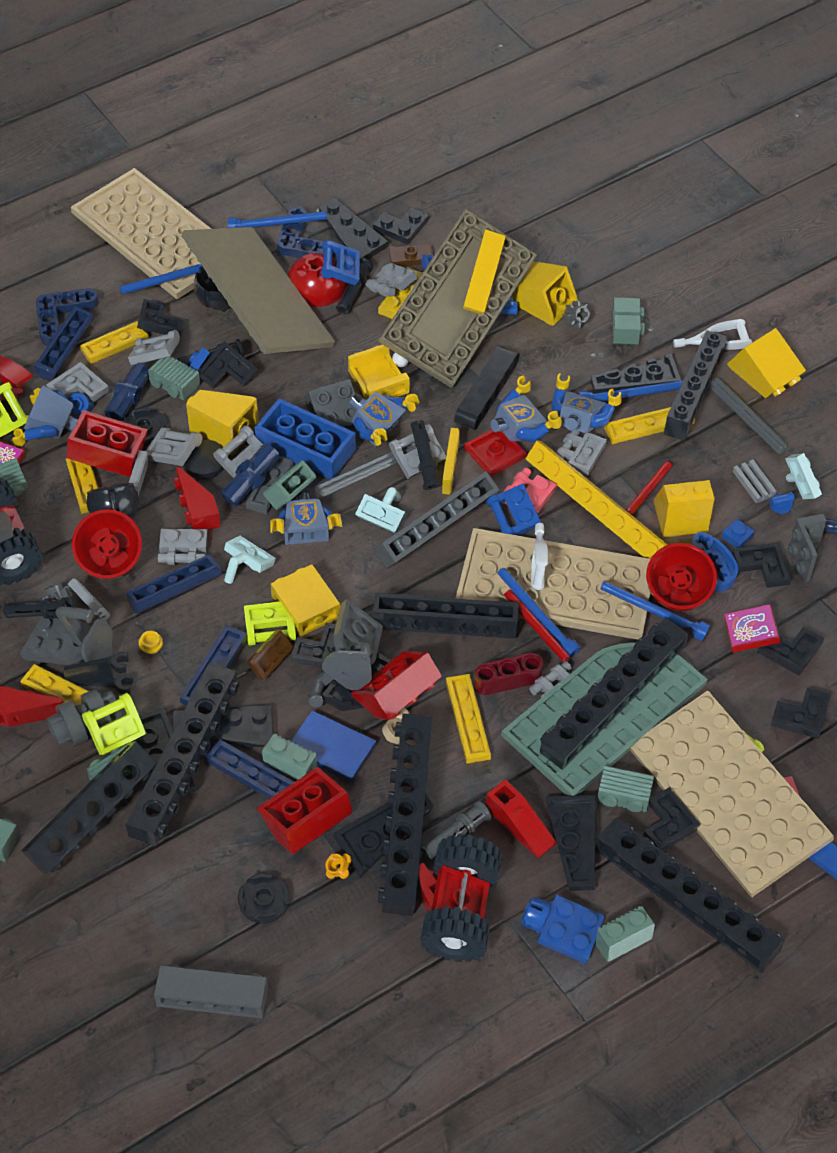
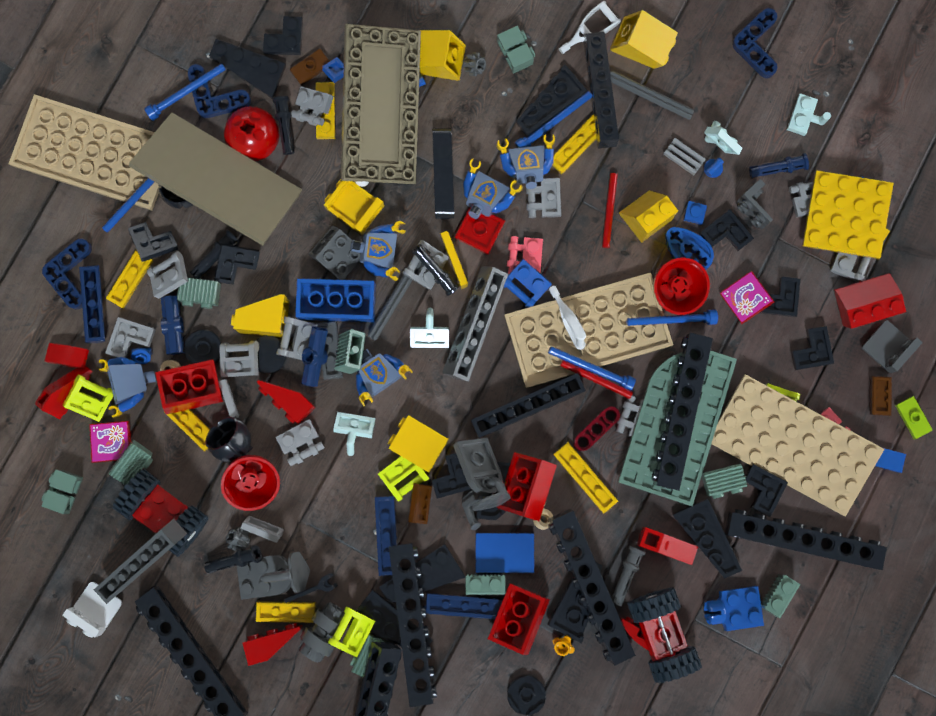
camera: 25 degrees left, 30 degrees up
(150, 642) = (328, 538): yellow plate -> none
(173, 583) = (314, 481): dark blue brick -> none
(199, 359) = (210, 269): blue plate -> none
(347, 262) = (271, 113): blue plate -> none
(484, 272) = (391, 75): yellow tile -> none
(594, 500) = (581, 241): yellow plate -> none

